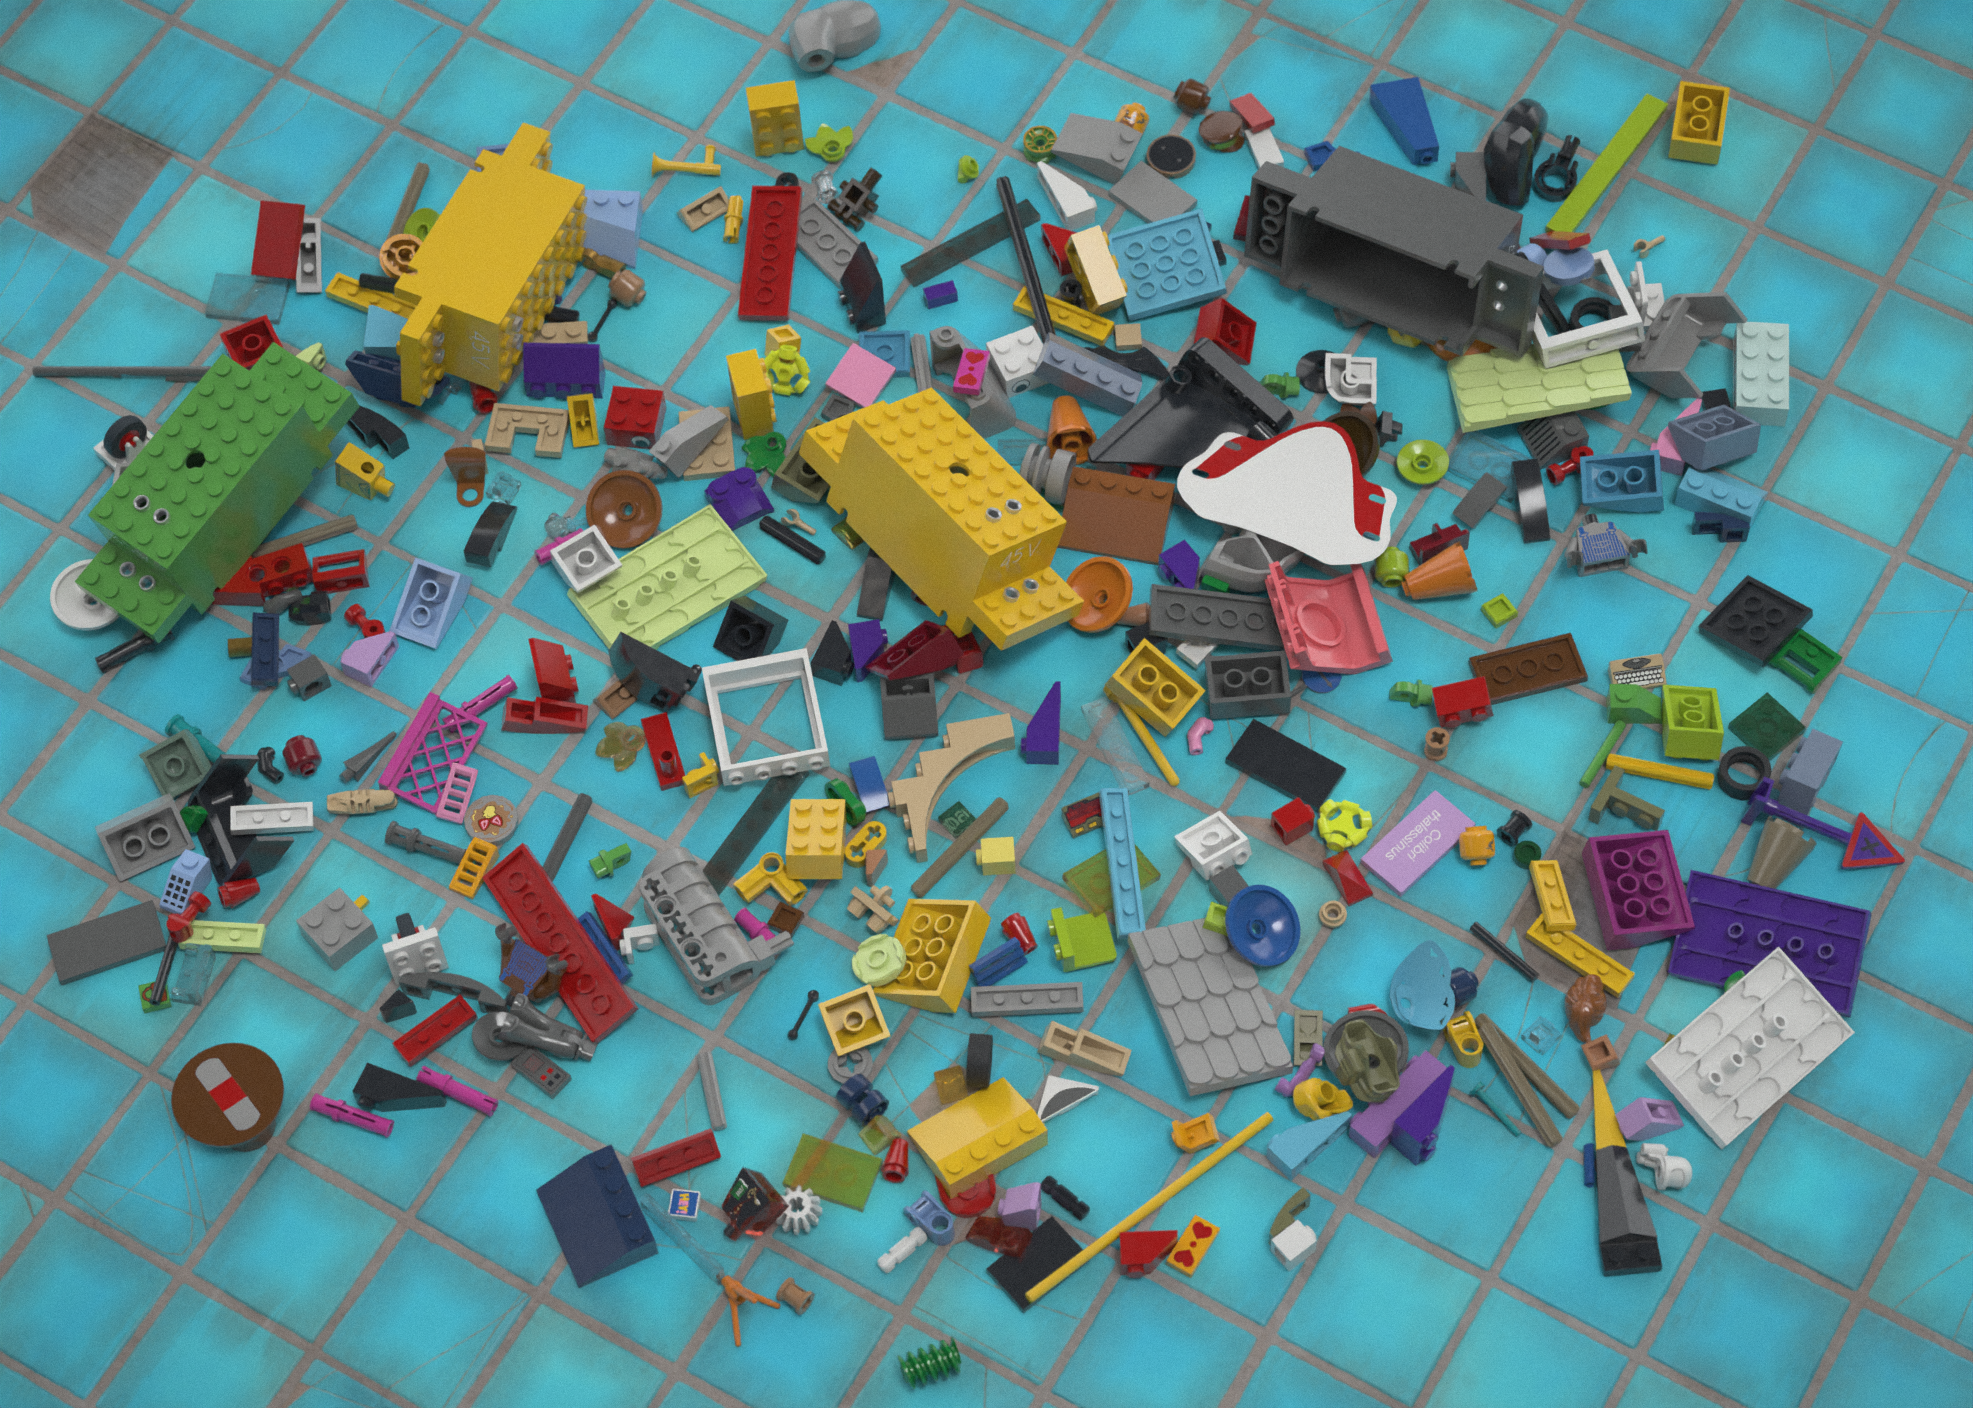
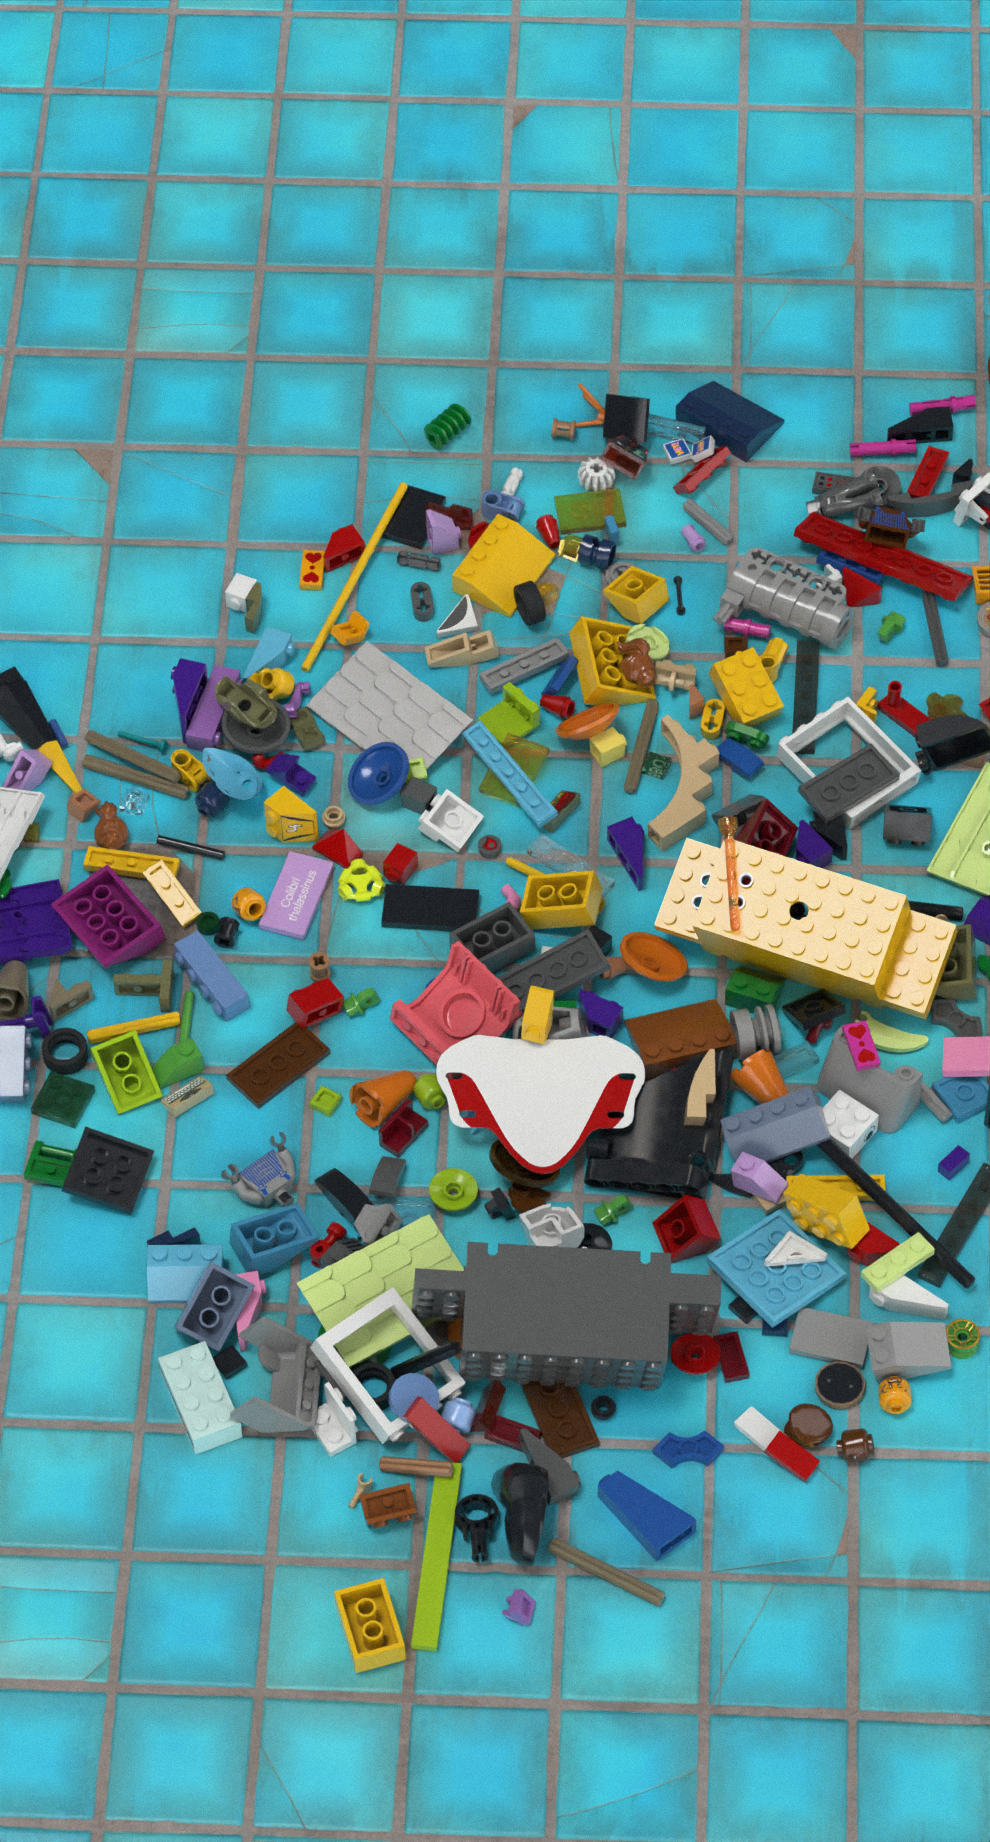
camera: 150 degrees right, 5 degrees down
(657, 1184) = (703, 449): none -> tile
(723, 1251) = (626, 417): none -> black slope
(742, 1079) = (695, 541): none -> lavender pin
(786, 678) = (848, 783): none -> dark grey tile
(827, 1123) = (611, 529): none -> dark azure tile
(911, 923) = (638, 664): none -> dark orange hair
(984, 549) = (728, 828): none -> clear orange piece
(1007, 896) = (588, 722): none -> orange dish
(1058, 209) = (897, 1262): none -> yellowish green plate
(1097, 1143) = (425, 601): none -> dark grey beam
(1134, 342) = (758, 1178): none -> lavender slope
(1139, 427) = (701, 1091): none -> tan slope
(1143, 265) = (794, 1250): none -> white tile
(1185, 806) = (489, 846): none -> dark grey tile
(1262, 537) = (538, 1015): none -> yellow slope
(1355, 981) = (291, 774): none -> dark purple slope
(1387, 914) = (290, 817): none -> yellow slope
(1462, 90) = (606, 1571): none -> dark tan axle
(1519, 440) = (377, 1222): none -> light grey slope
(1554, 785) = (211, 976): none -> medium blue brick
(1556, 93) = (520, 1607): none -> medium lavender tile
(1597, 242) = (416, 1466): none -> medium nougat axle
(1632, 212) = (388, 1505): none -> dark orange bracket
(1721, 824) = (65, 1002): none -> dark tan slope

